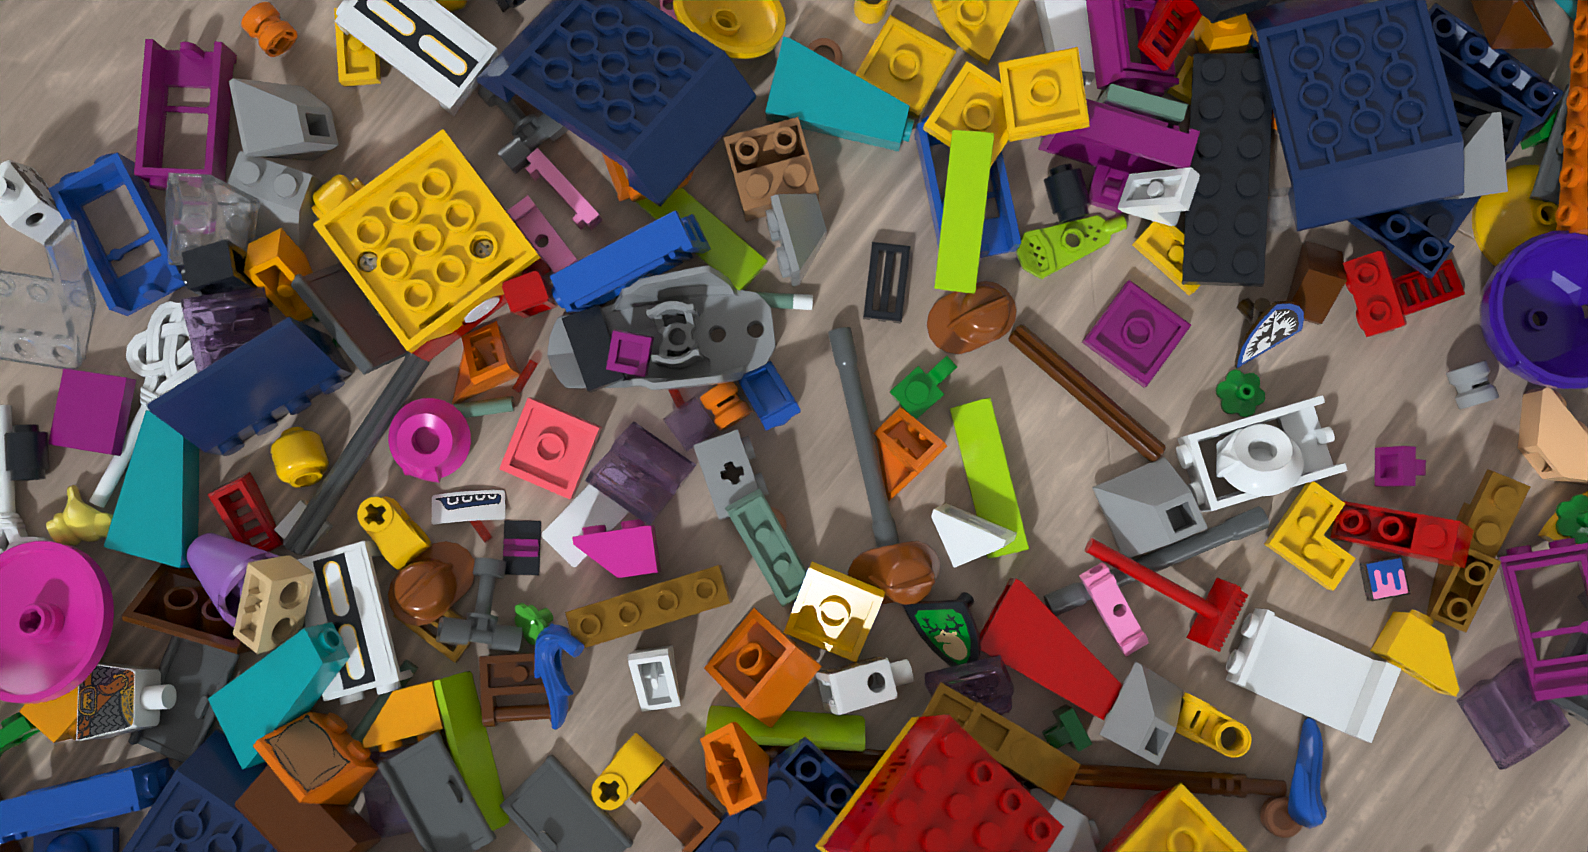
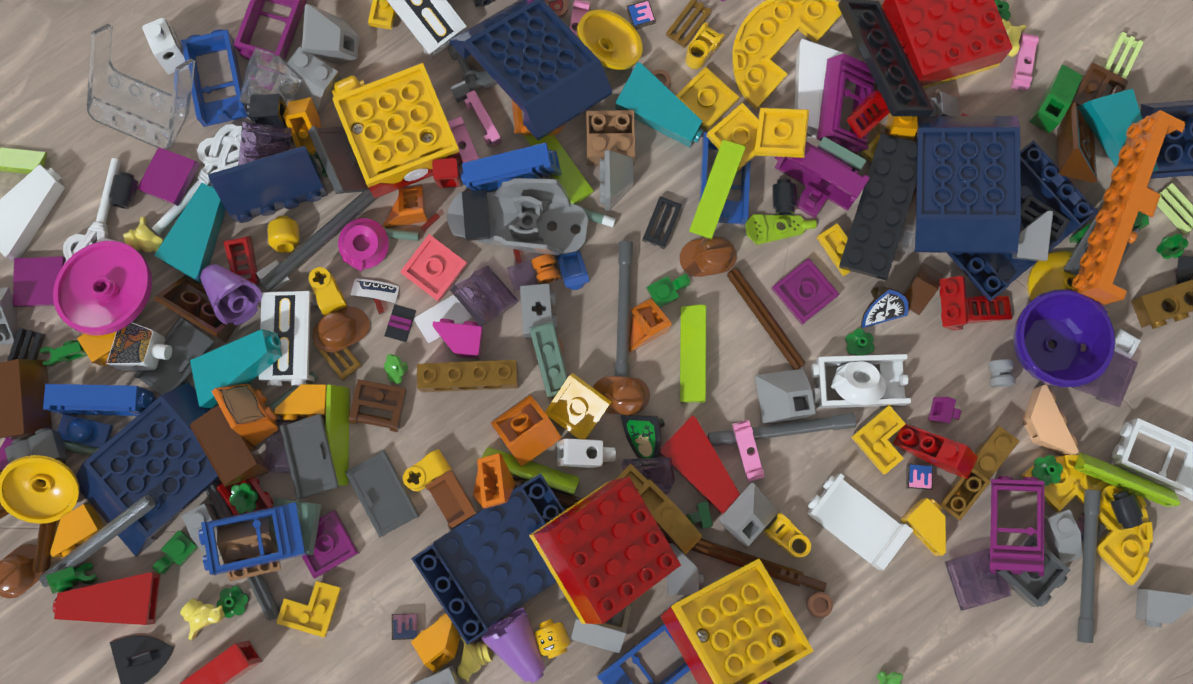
camera: 10 degrees right, 5 degrees down
(272, 602) = (246, 310): tan brick -> none
(481, 625) = (364, 359): dark grey bar -> none
(549, 667) = (397, 394): blue piece -> none
(630, 353) = (497, 221): magenta tile -> none
(655, 677) = (459, 419): white slope -> none
(967, 534) = (670, 383): white slope -> none
(1159, 194) = (838, 210): white slope -> none
(1214, 613) = (809, 469): red piece -> none
(1305, 798) = (835, 593): blue piece -> none

